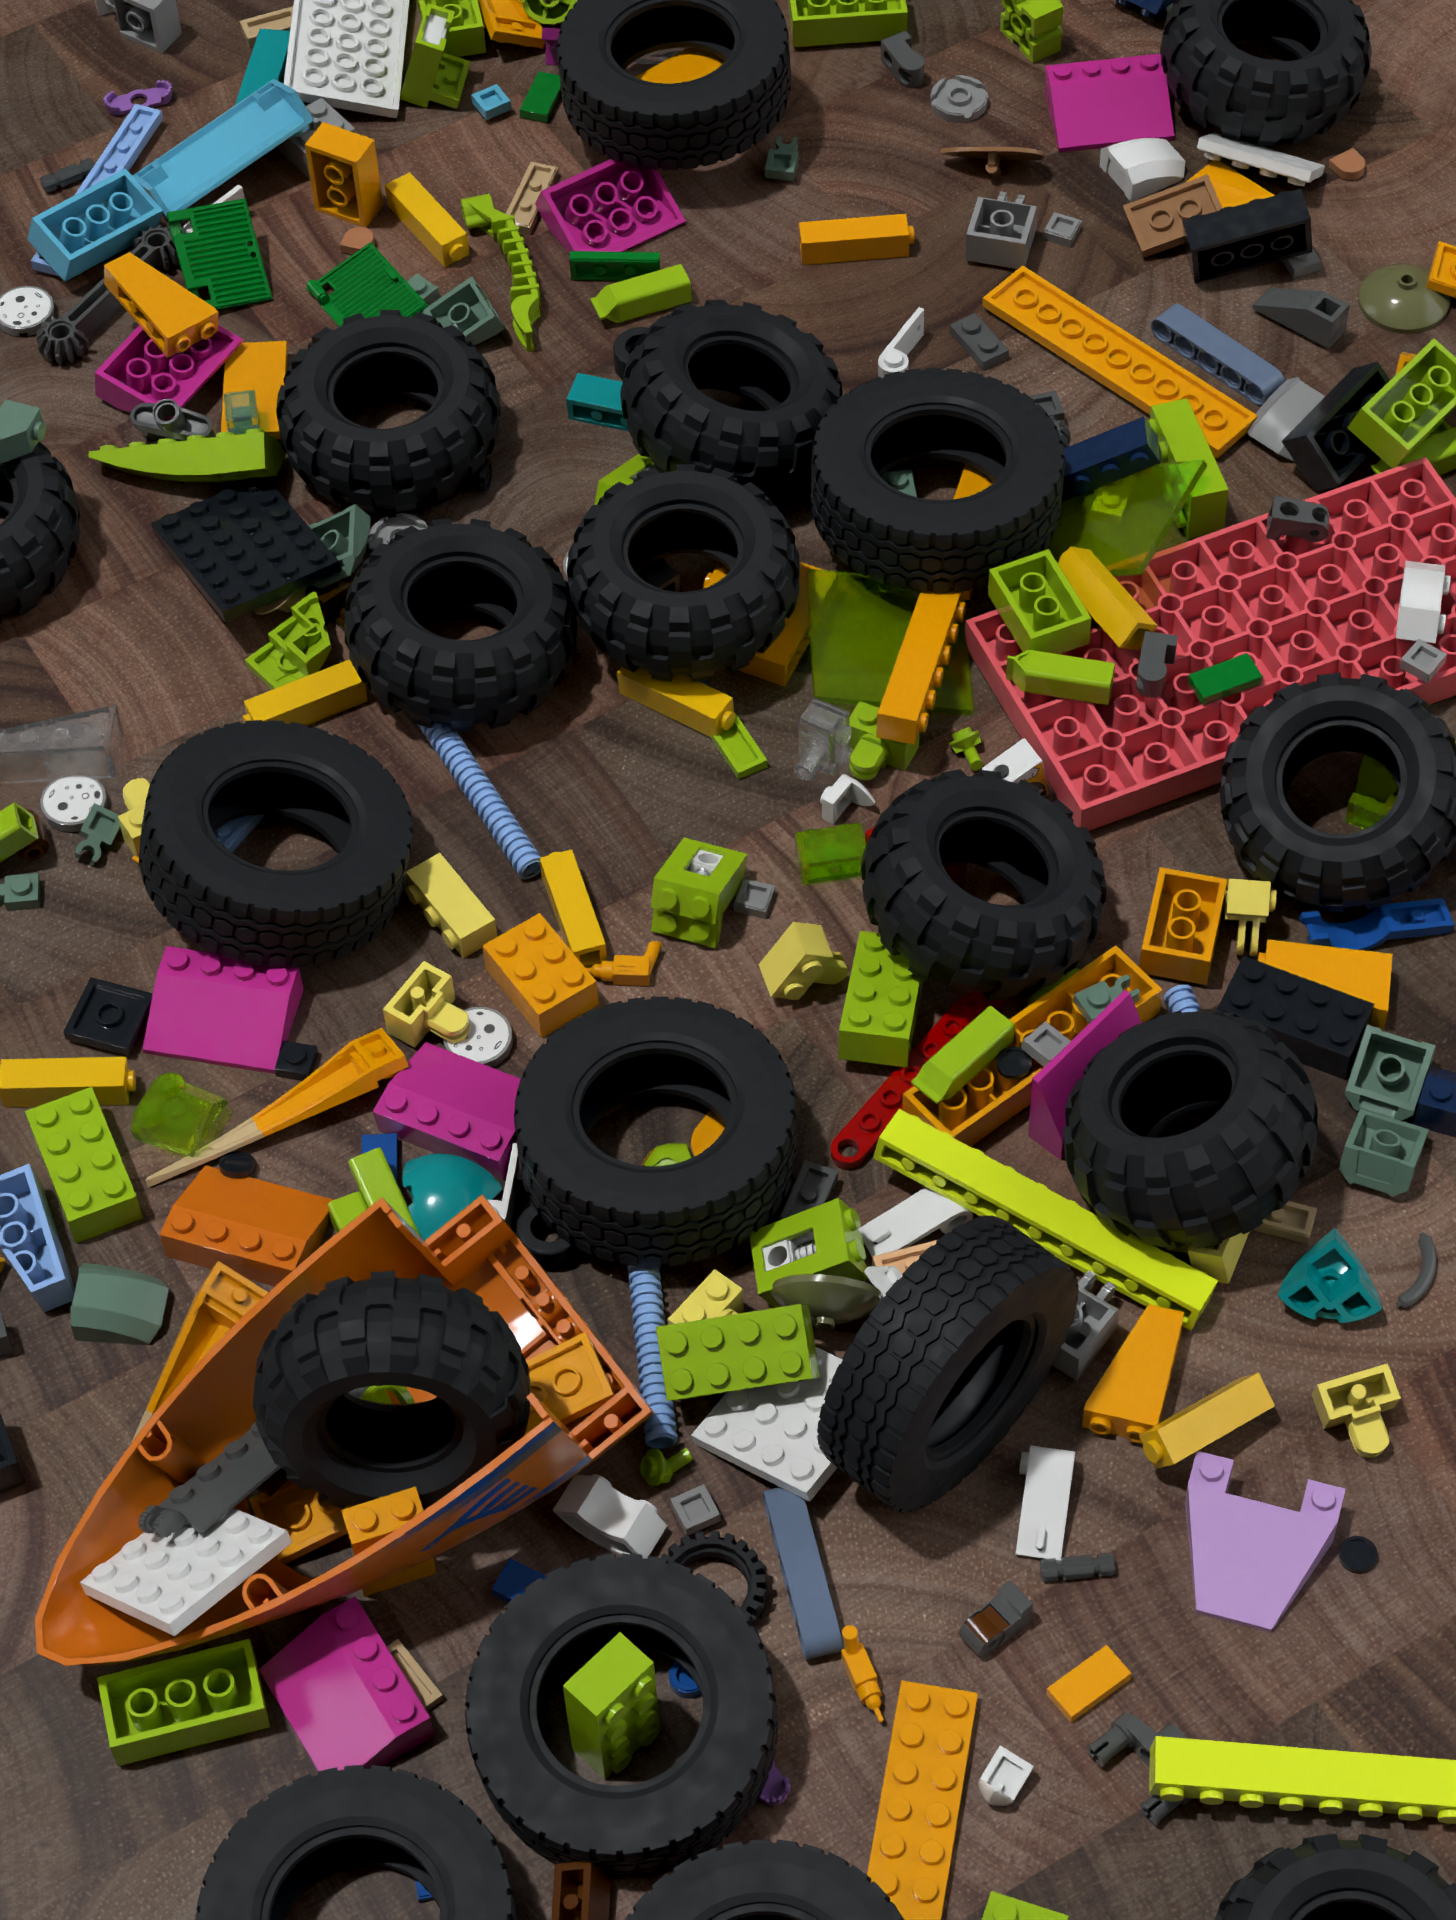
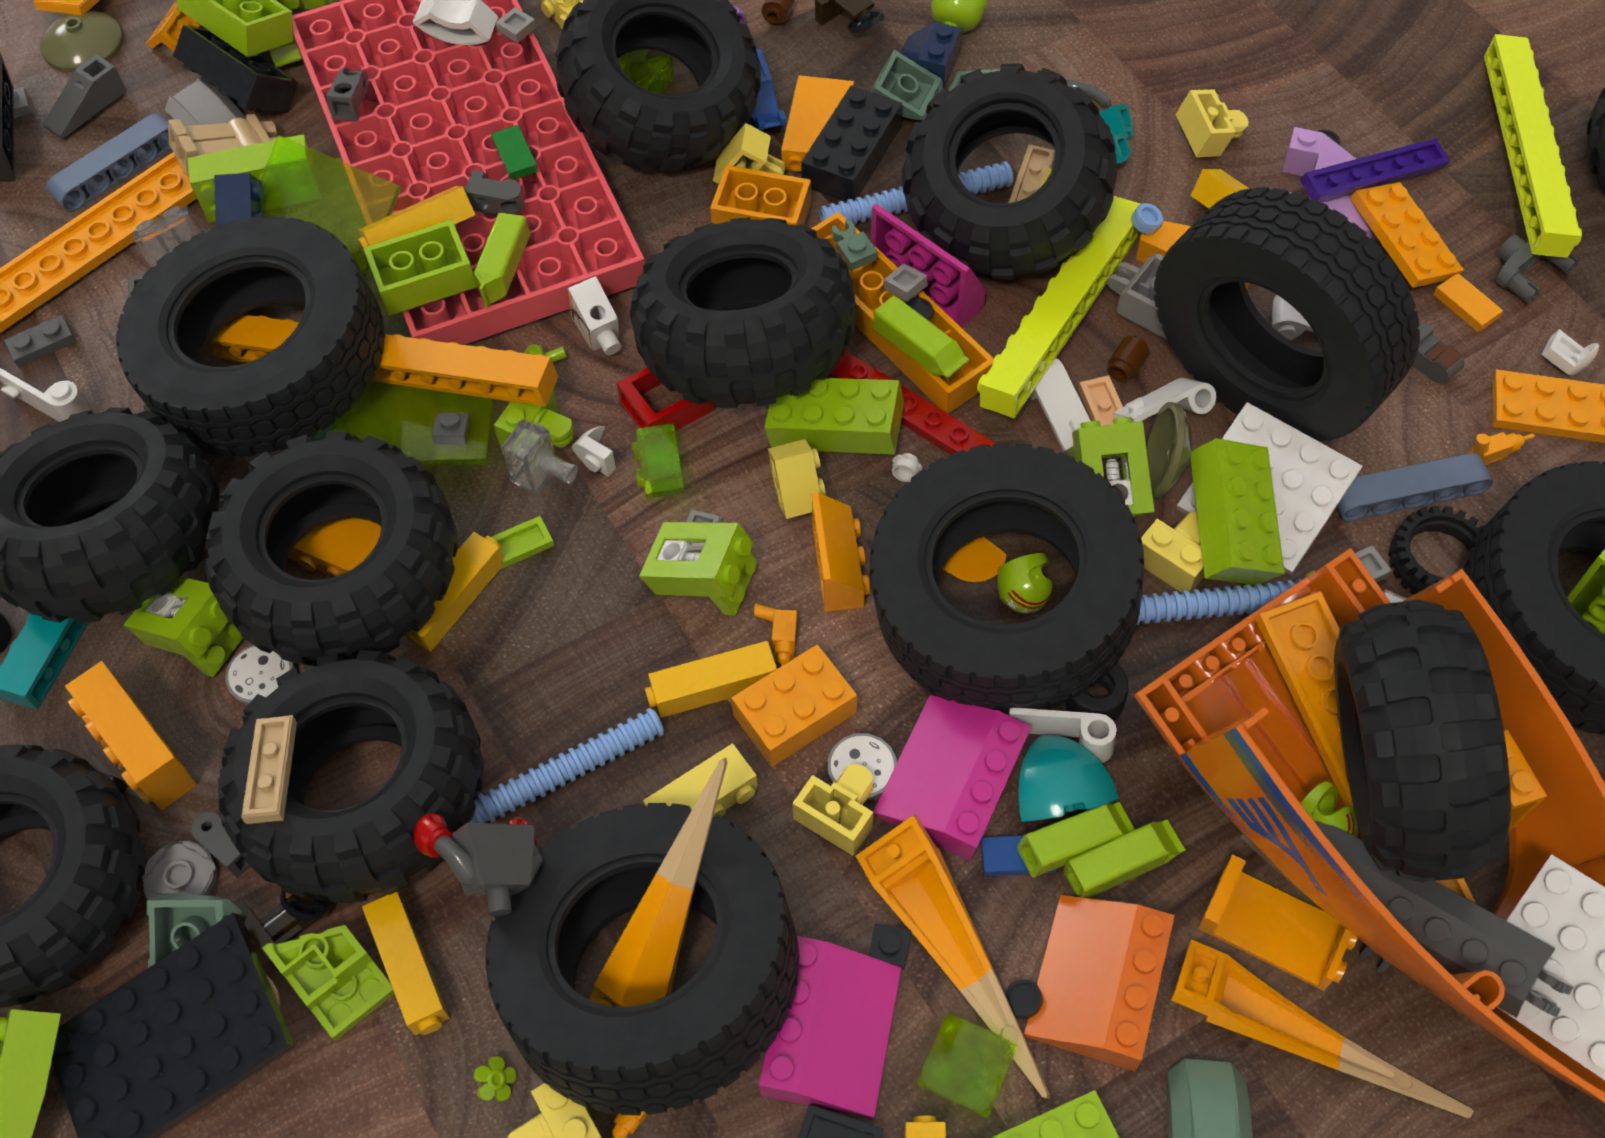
camera: 90 degrees left, 5 degrees up
(300, 849) = (649, 948): none -> light orange plate
(351, 712) = (484, 856): none -> dark grey torso
(439, 545) = (269, 770): none -> tan tile
(524, 475) = (128, 737): none -> light orange brick
(725, 985) = (838, 554): none -> light orange slope
(828, 1074) = (905, 467): none -> white plate
(852, 665) = (451, 428): none -> dark grey plate
(1101, 408) = (165, 233): none -> clear brick
(1172, 1305) = (1147, 218): none -> light blue tile
(1187, 1616) = (1406, 234): none -> light orange plate
(1237, 436) = (210, 138): none -> tan hips
(1282, 1583) = (1374, 170): none -> dark purple plate

